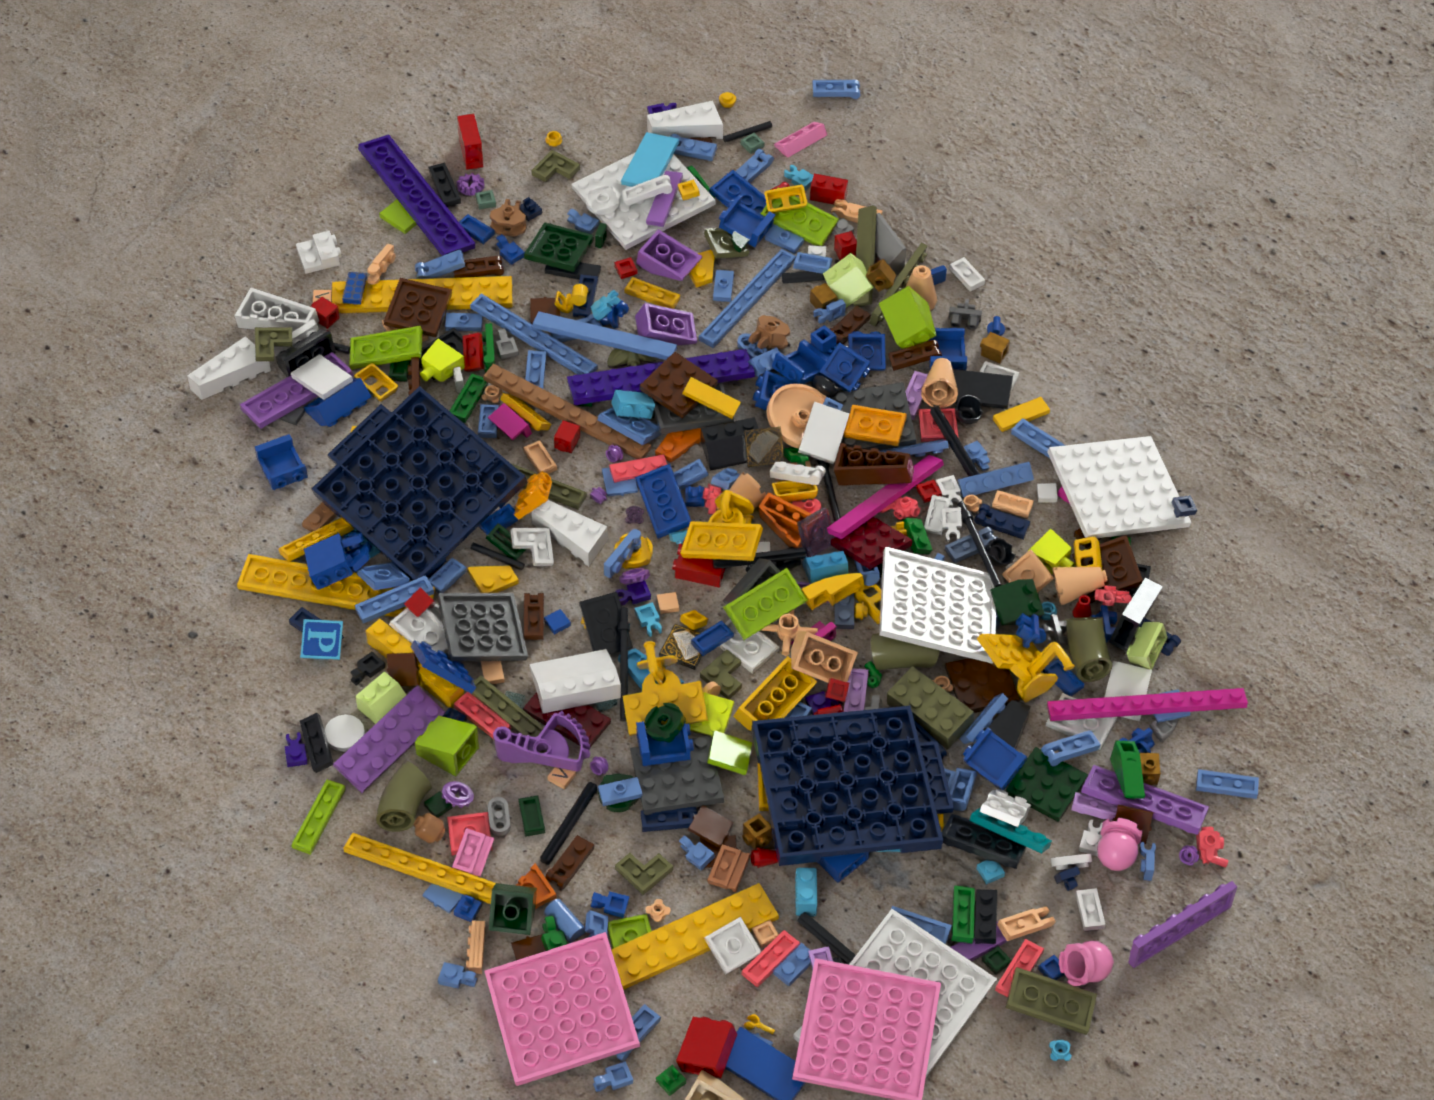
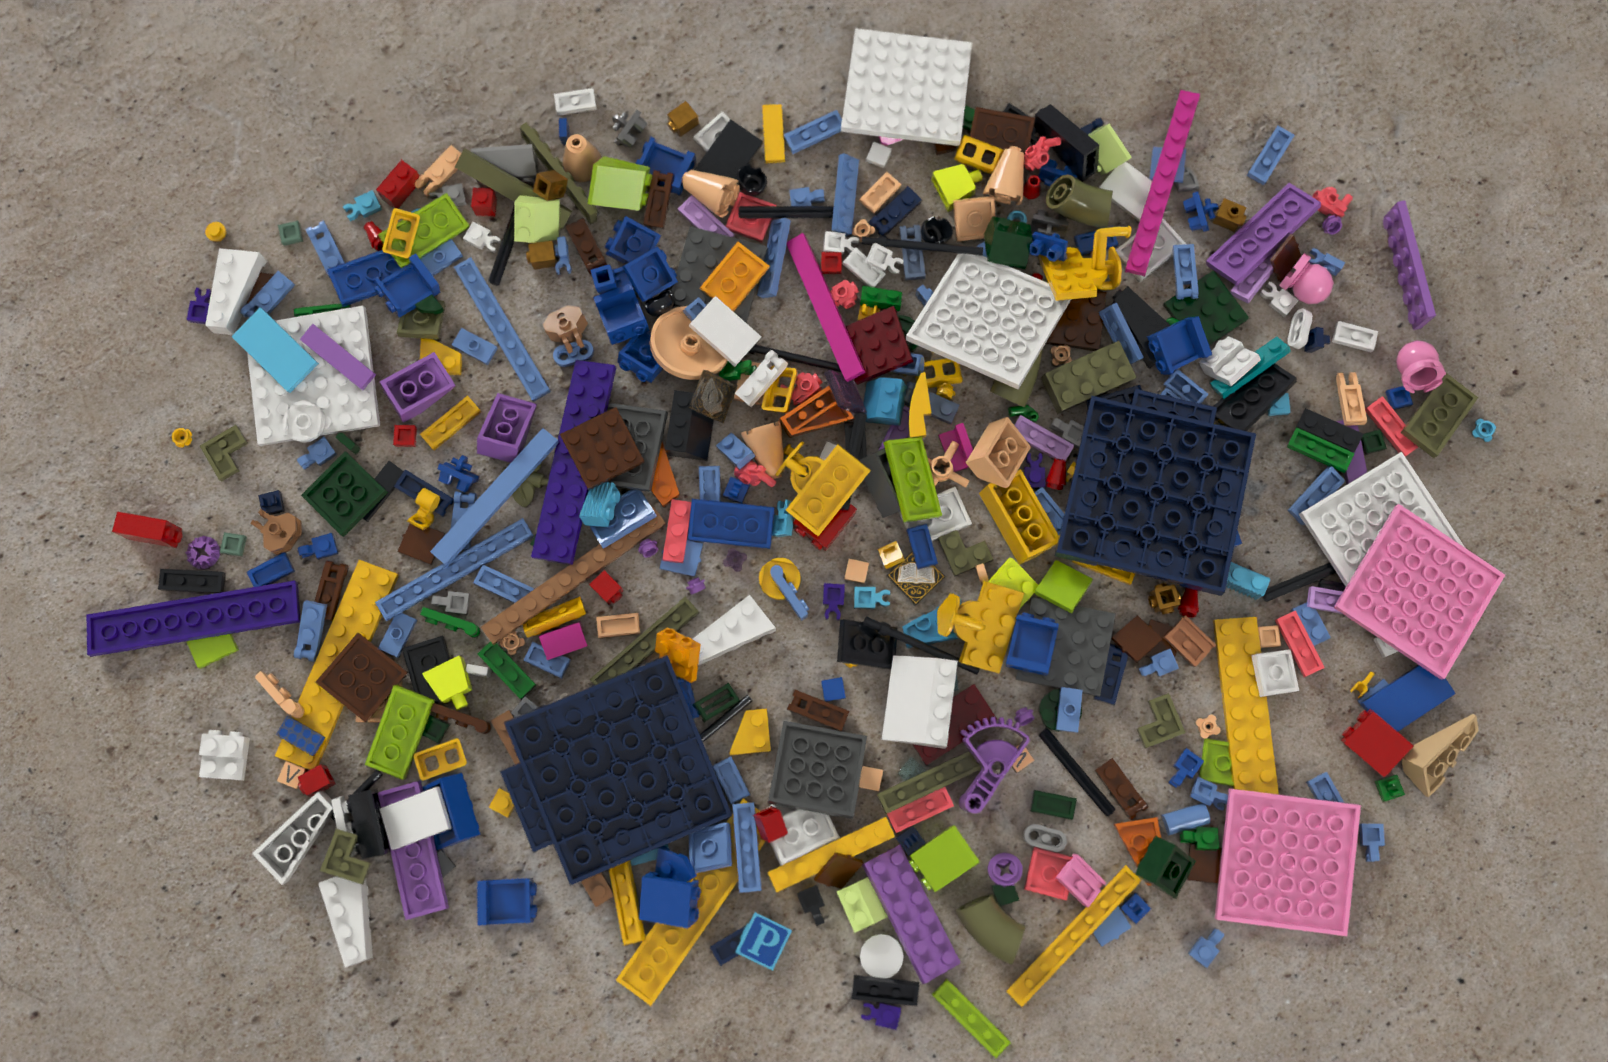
camera: 65 degrees left, 25 degrees up
(353, 541) = (655, 864): blue plate -> none
(429, 828) = (1036, 913): medium nougat head -> none
(442, 666) = (867, 833): blue plate -> none
(473, 352) = (450, 641): red plate -> none
(476, 949) = (1182, 915): light nougat piece -> none
(537, 540) = (730, 670): white plate -> none
(603, 305) = (453, 481): medium azure plate -> none
(634, 576) = (809, 593): medium lavender gear -> none
(647, 190) = (320, 370): white plate -> none
(669, 730) = (1030, 639): dark green plate -> none
(688, 190) = (341, 327): yellow plate -> none
(711, 398) = (639, 423): yellow tile -> none
(747, 131) = (271, 237): black bar -> none
(763, 362) = (601, 347): medium blue plate -> none
(801, 139) = (309, 181): bright pink slope -> none
(812, 263) = (492, 244): medium blue tile -> none
(836, 88) = (257, 115): medium blue plate -> none
(837, 690) = (1036, 454): red plate -> none
(871, 466) = (787, 304): reddish brown wedge -> none
(996, 326) = (656, 106): blue plate -> none
(1128, 769) = (1233, 232): green slope -> none
(1183, 506) = (963, 39): dark blue tile -> none

